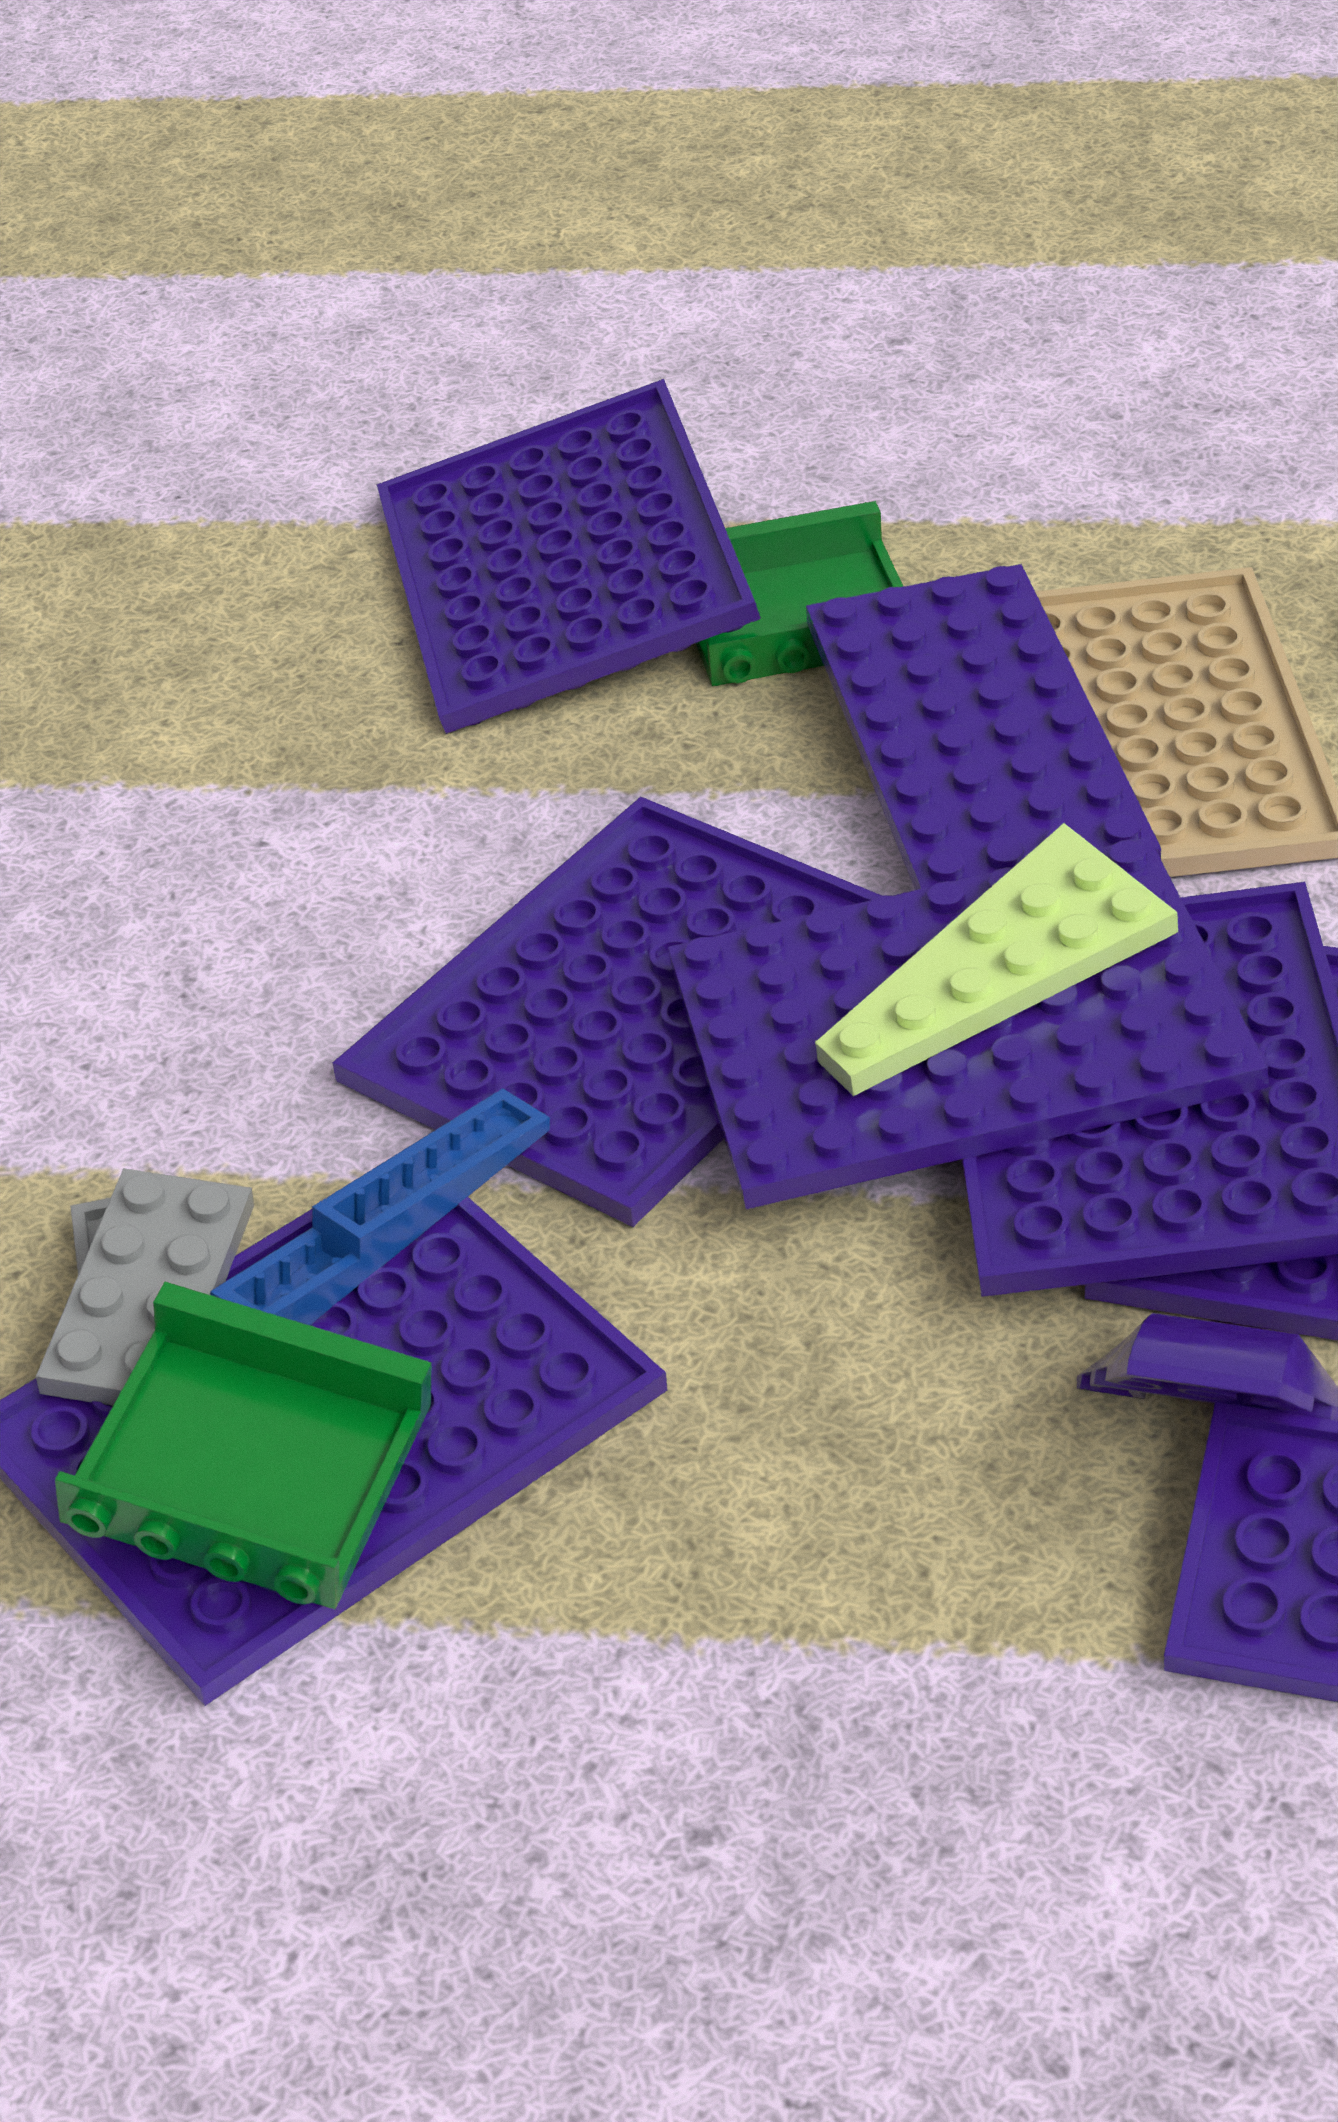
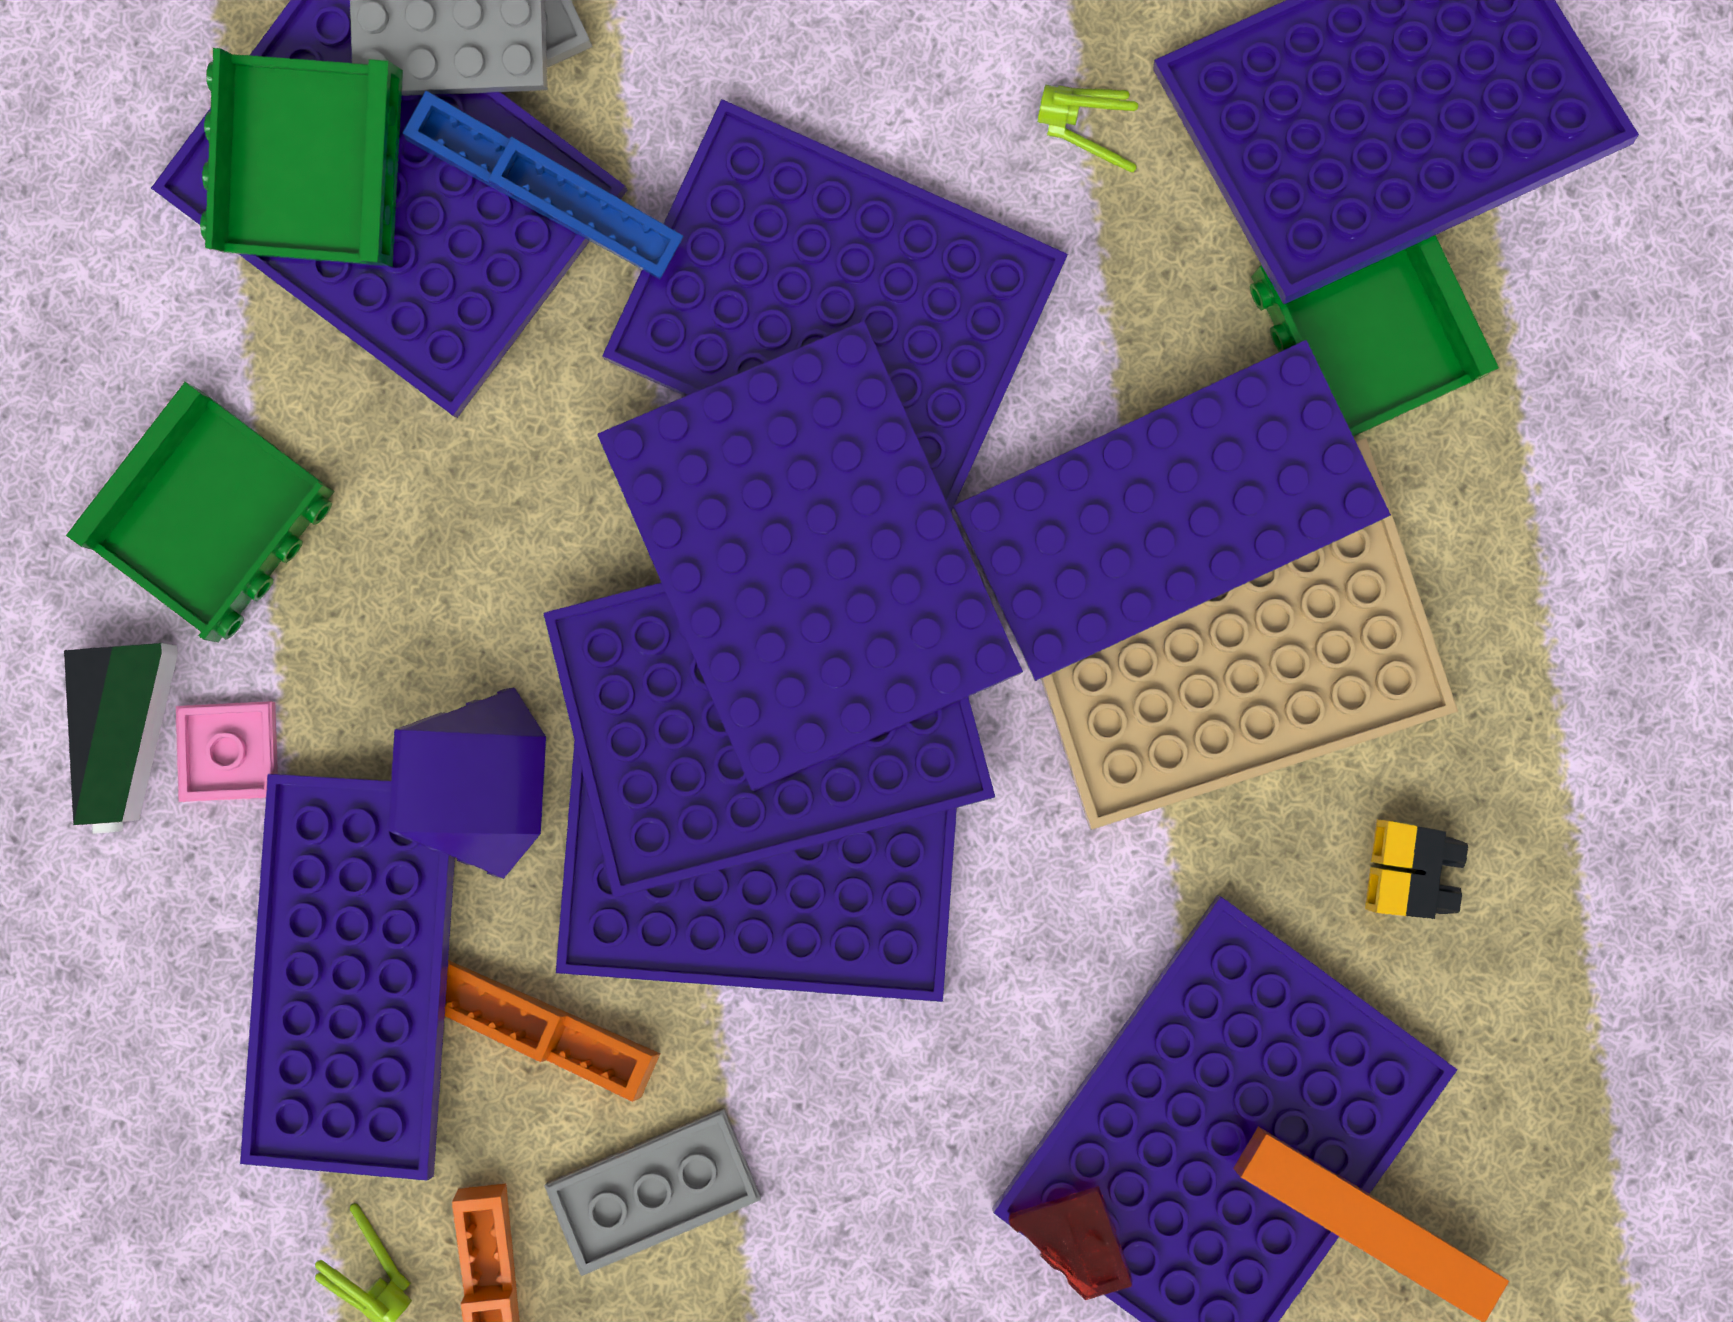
camera: 70 degrees right, 45 degrees up
(465, 789) = (1062, 105): none -> lime plant
(737, 1700) = (203, 513): none -> green panel
(1022, 941) = (864, 597): yellowish green wing -> none
(1059, 1854) = (114, 728): none -> slope
(1118, 1728) = (225, 750): none -> bright pink tile

